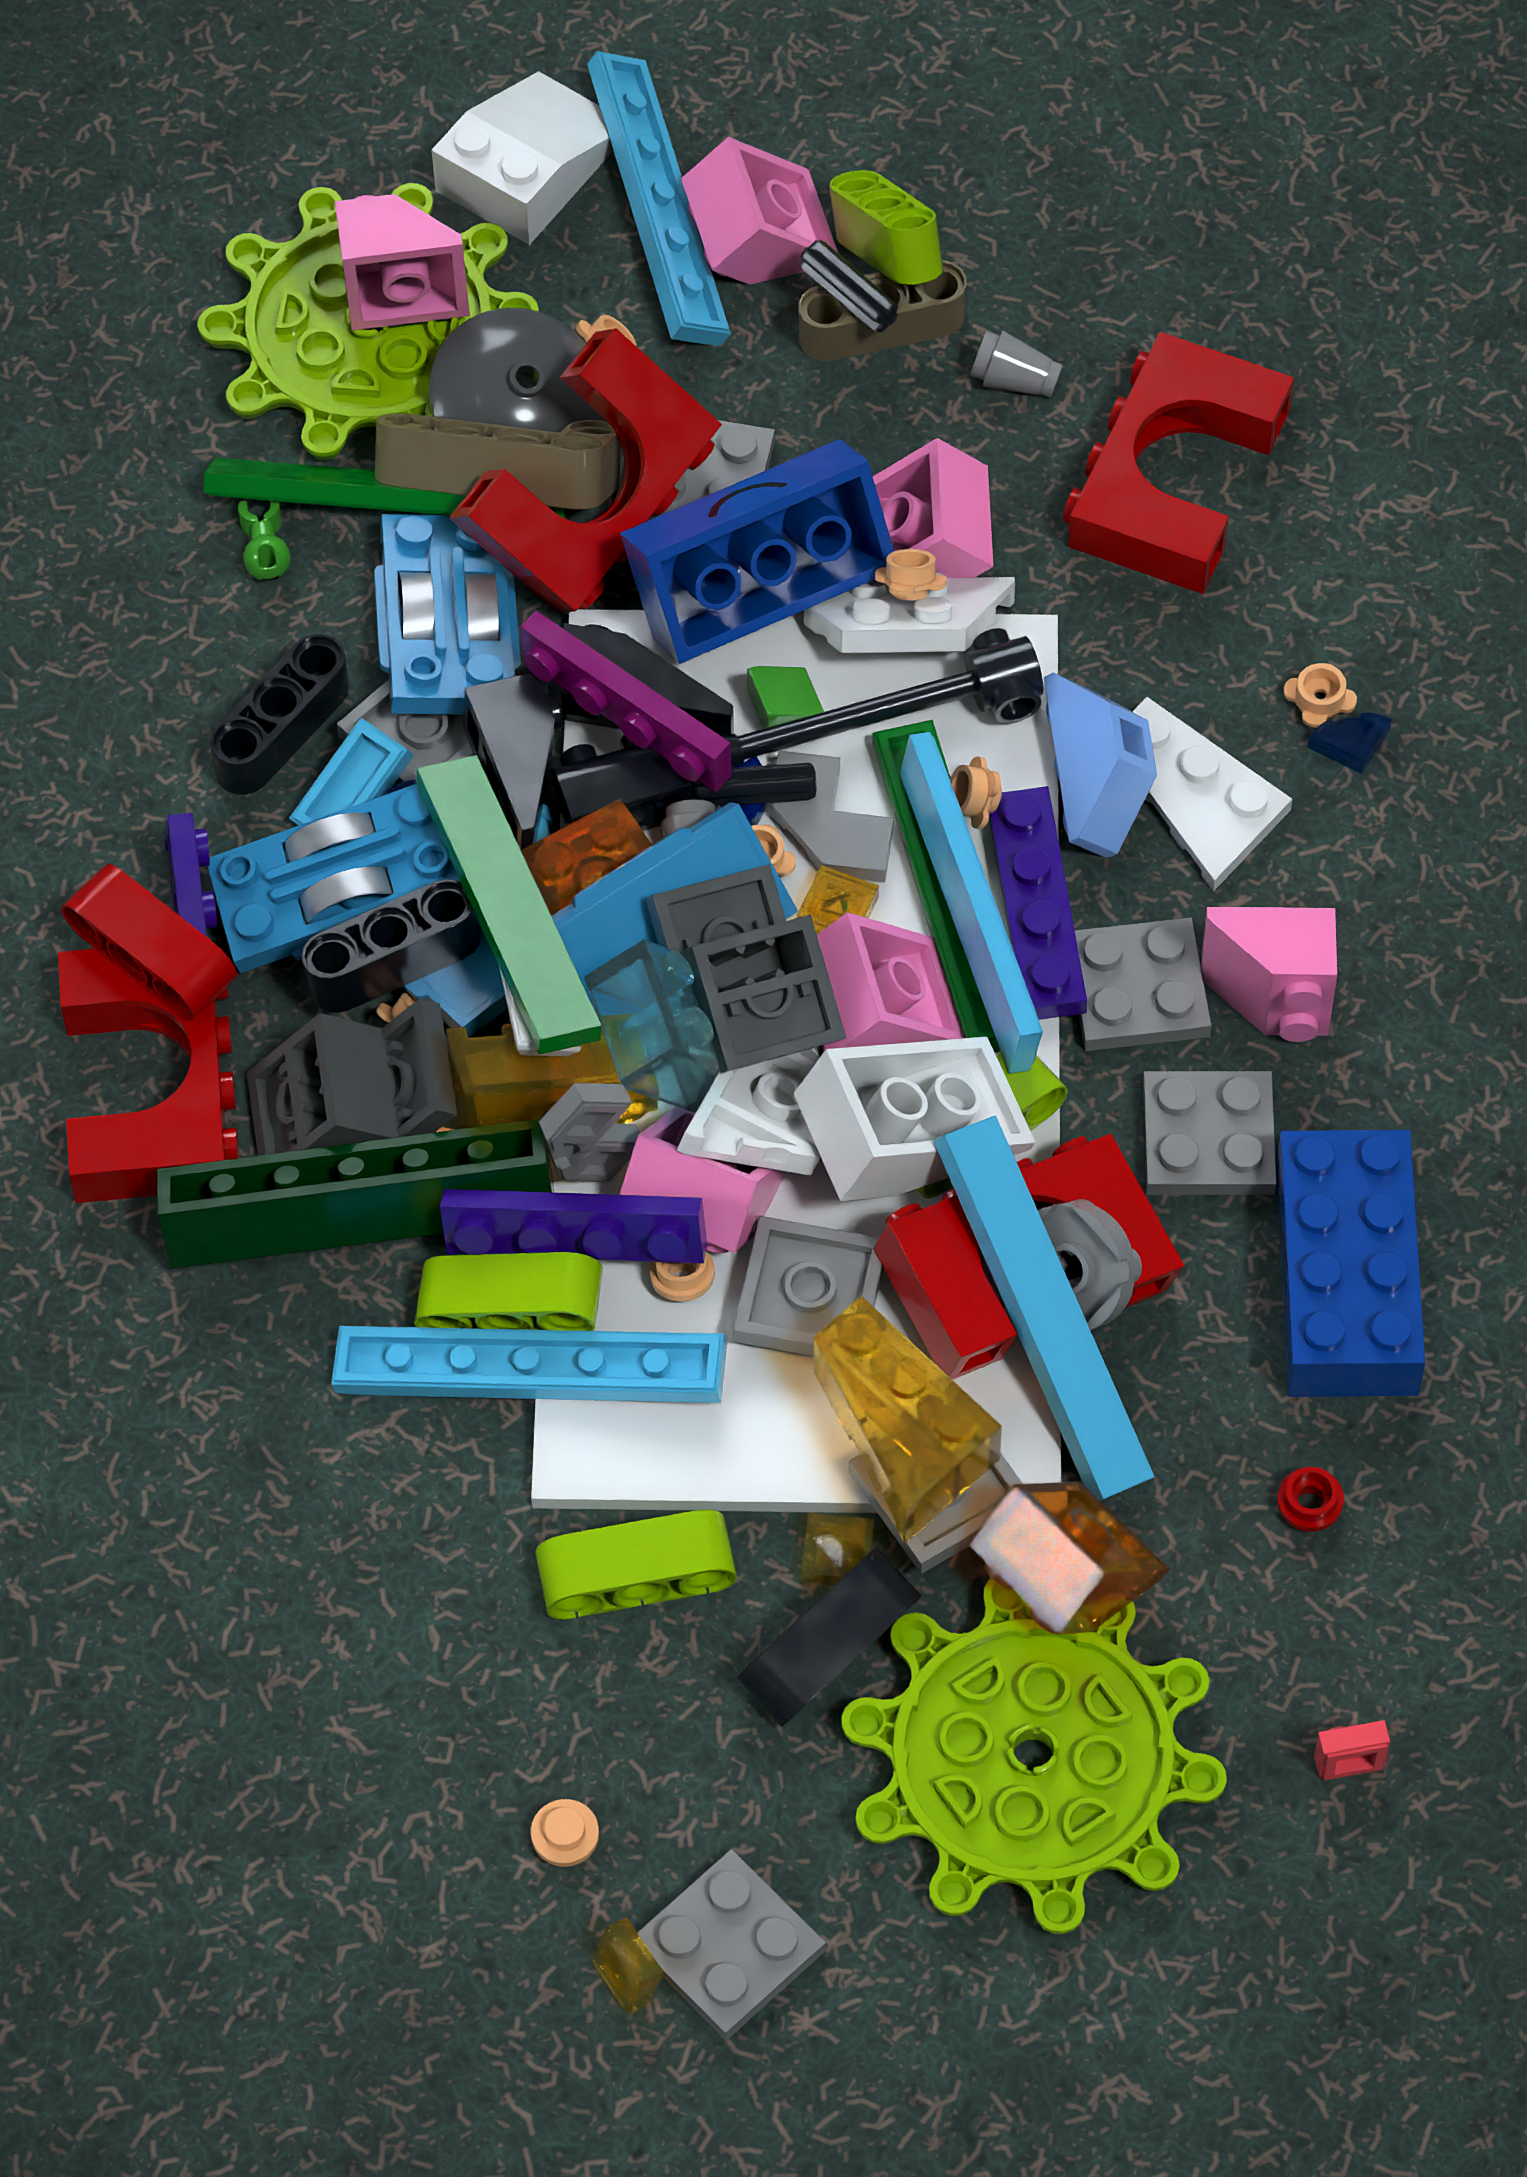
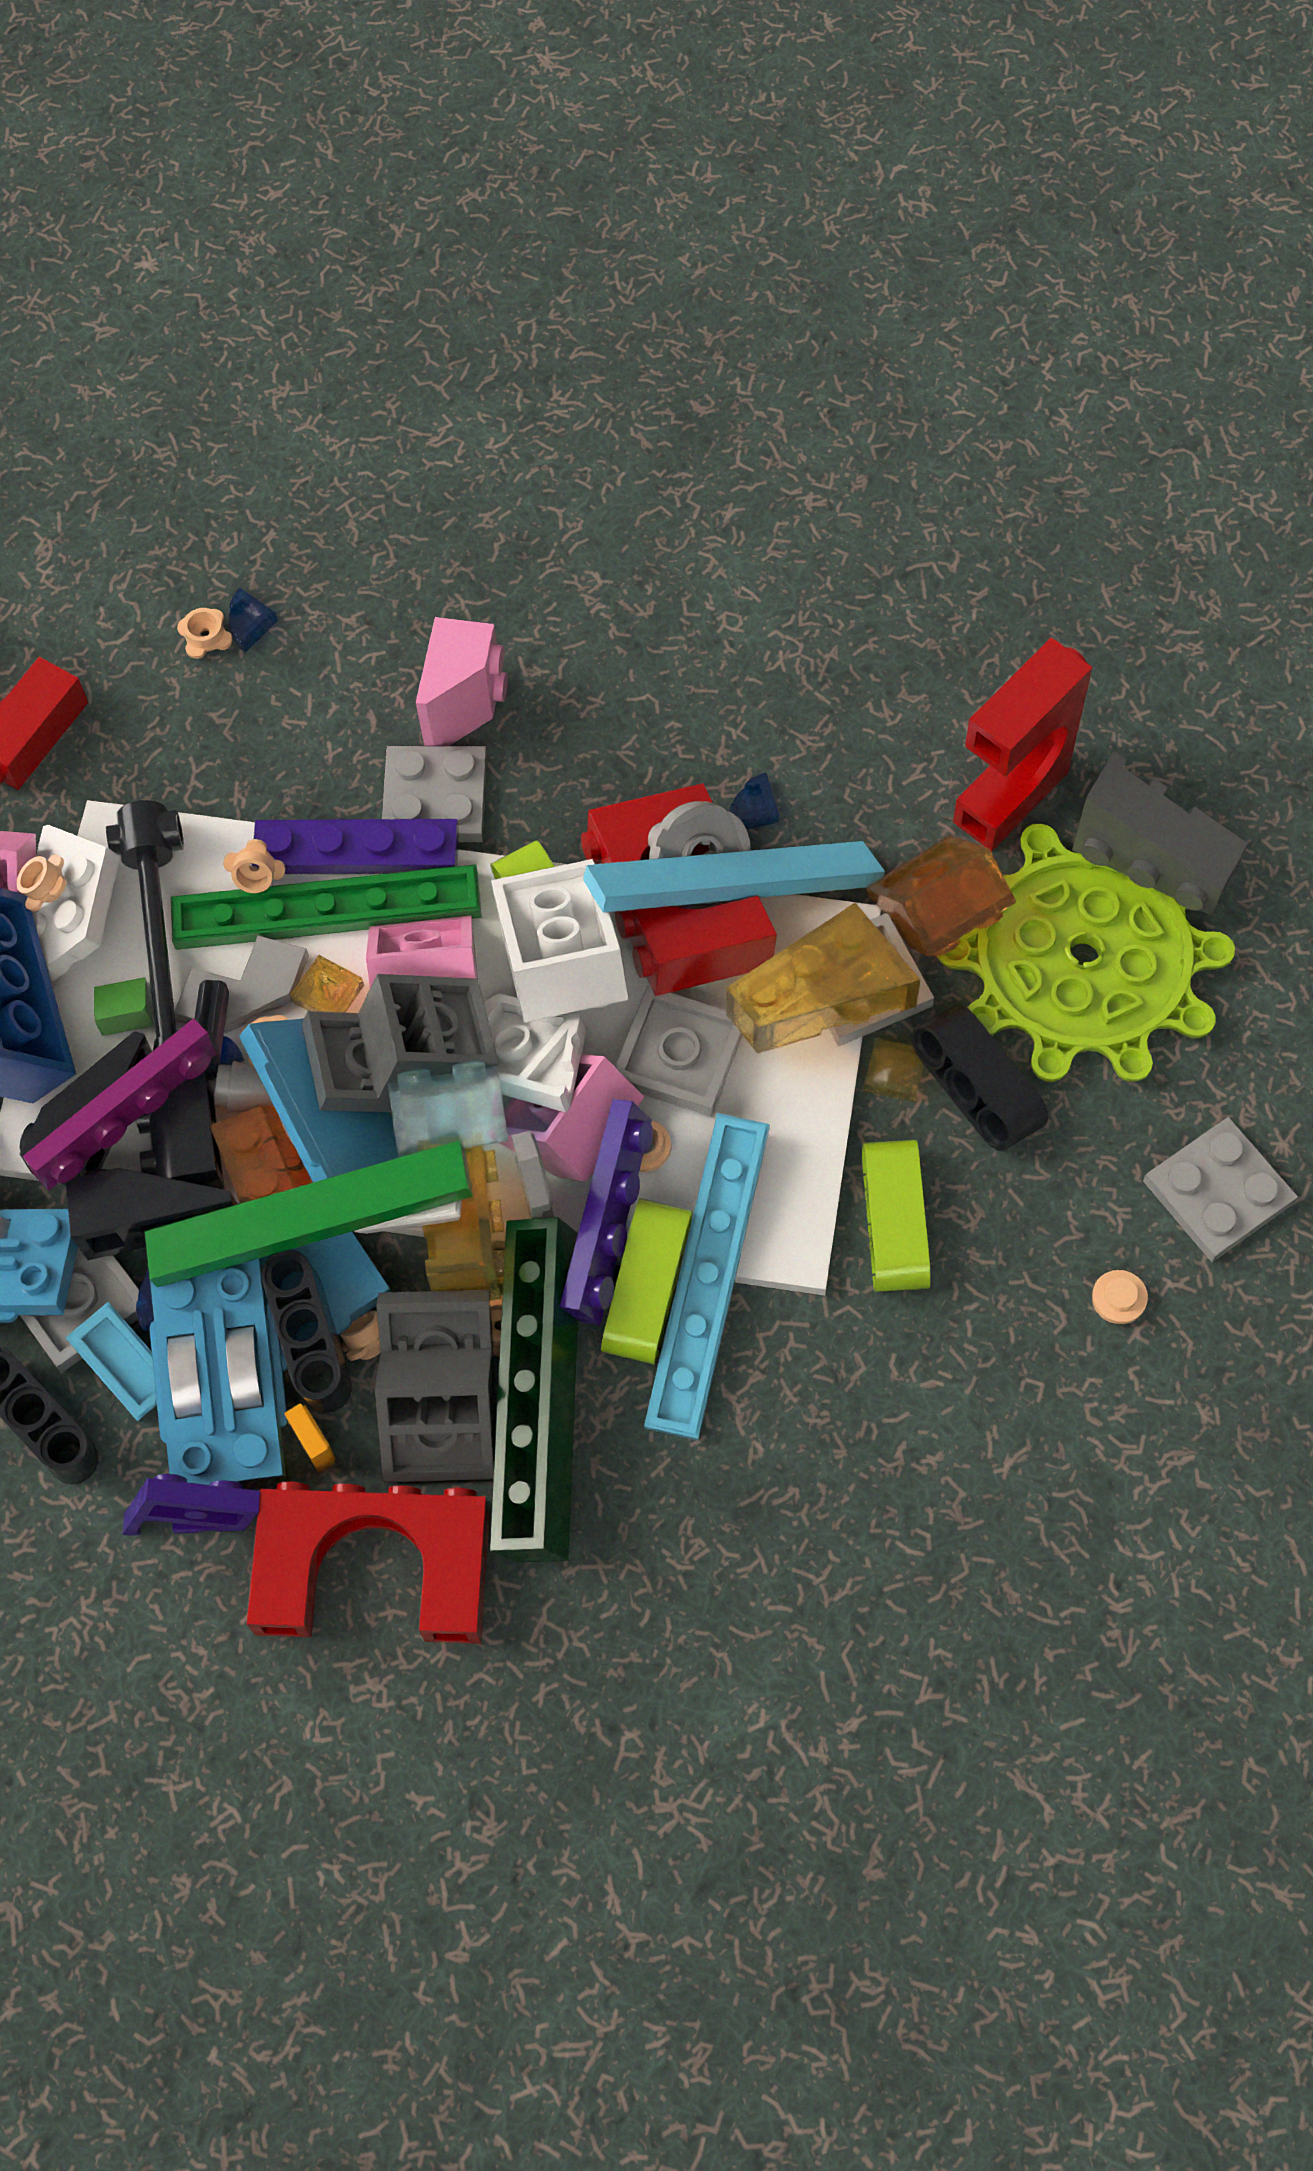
camera: 80 degrees left, 5 degrees up
(149, 942) = (263, 1535): red beam -> none
(280, 988) = (310, 1437): none -> light orange tile
(627, 1966) = (1242, 1259): clear yellow tile -> none
(971, 903) = (364, 875): medium azure tile -> none
(1101, 764) = (236, 781): light blue slope -> none
(1182, 1798) = (1155, 840): none -> dark grey wedge
(1188, 1346) = (755, 803): none -> clear blue tile
(1208, 796) = (272, 724): white wing -> none
(1209, 1133) = (573, 763): light grey plate -> none
(1273, 1602) = (1026, 739): none -> red arch
(1310, 1481) = (897, 729): red plate -> none
(1349, 1263) = (709, 680): blue brick -> none
(1351, 1750) = (1102, 737): coral tile -> none

